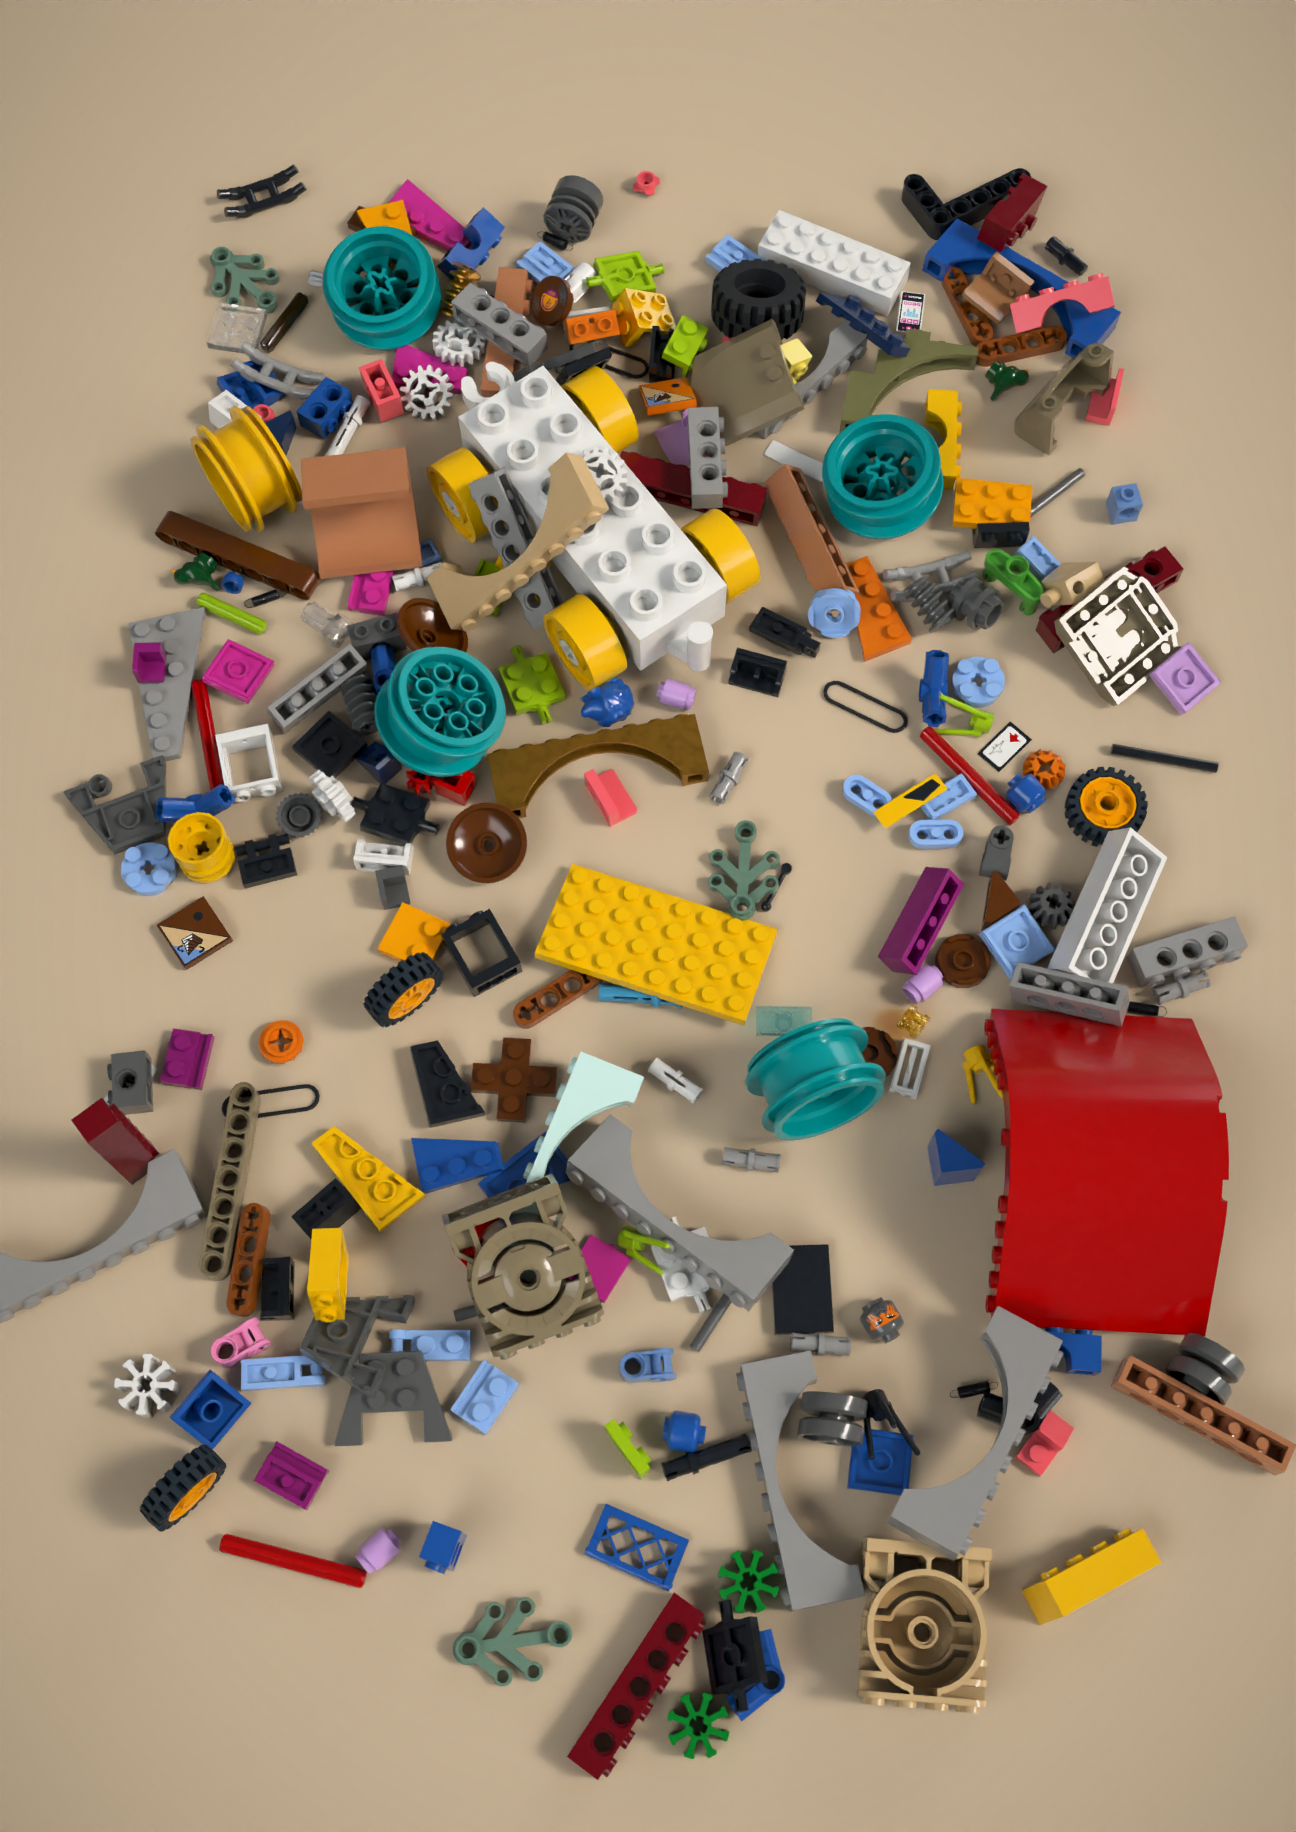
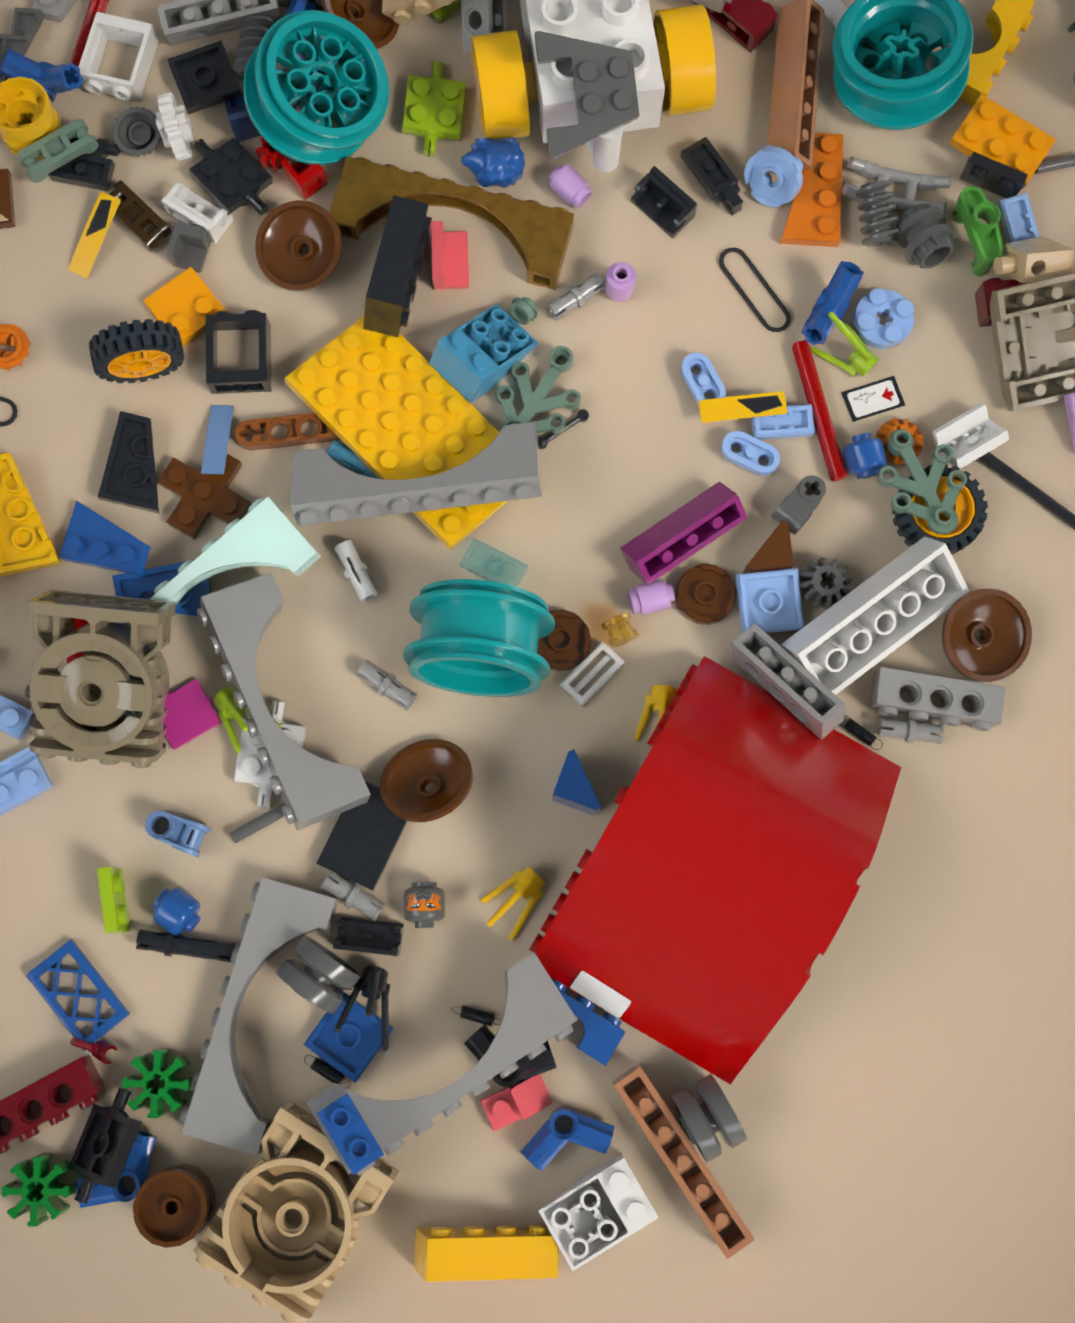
camera: 25 degrees right, 10 degrees up
(242, 860) = (57, 149): none -> sand green plate
(306, 915) = (94, 234): none -> yellow sticker
(332, 883) = (137, 215): none -> dark brown plate
(502, 1030) = (217, 439): none -> medium blue sticker
(579, 821) = (397, 266): none -> black brick
(627, 1025) = (501, 472): none -> light grey arch
(679, 857) = (481, 352): none -> dark azure slope
(681, 1582) = (97, 1049): none -> dark red hand
(682, 607) = (602, 89): none -> dark grey wing
(693, 808) = (523, 310): none -> sand green plate
(760, 749) = (620, 281): none -> lavender brick
(801, 1678) = (156, 1201): none -> reddish brown wheel
(821, 1209) = (424, 768): none -> reddish brown dish
(852, 1370) = (369, 936): none -> black hinge
(878, 1500) = (327, 1071): none -> black piece
(944, 1517) = (350, 1133): none -> blue brick
(956, 1264) = (527, 885): none -> yellow plant
(1065, 1316) = (600, 994): none -> white sticker
(1084, 793) = (923, 485): none -> sand green plant
(1096, 740) = (970, 436): none -> white bracket
(1111, 1436) = (549, 1141): none -> blue piece
(1162, 1491) = (598, 1212): none -> white slope
(1210, 882) = (1002, 640): none -> reddish brown dish

